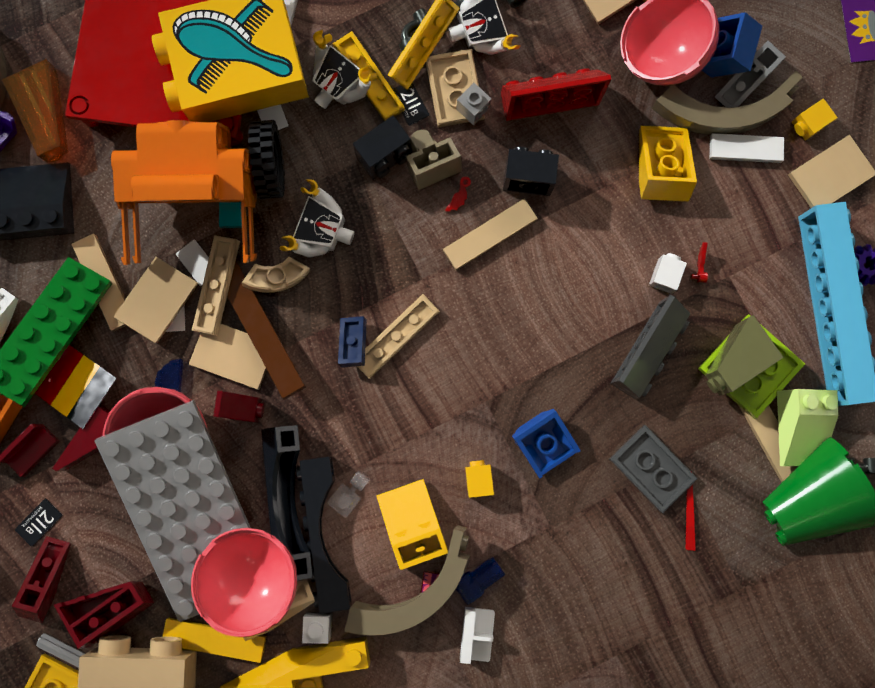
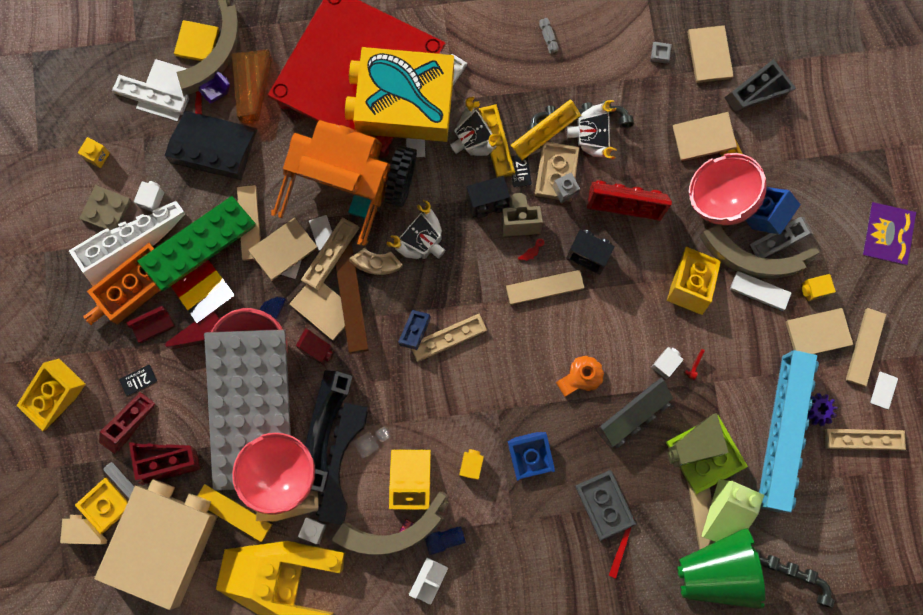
camera: 20 degrees right, 5 degrees down
(574, 323) = (584, 374): none -> orange animal

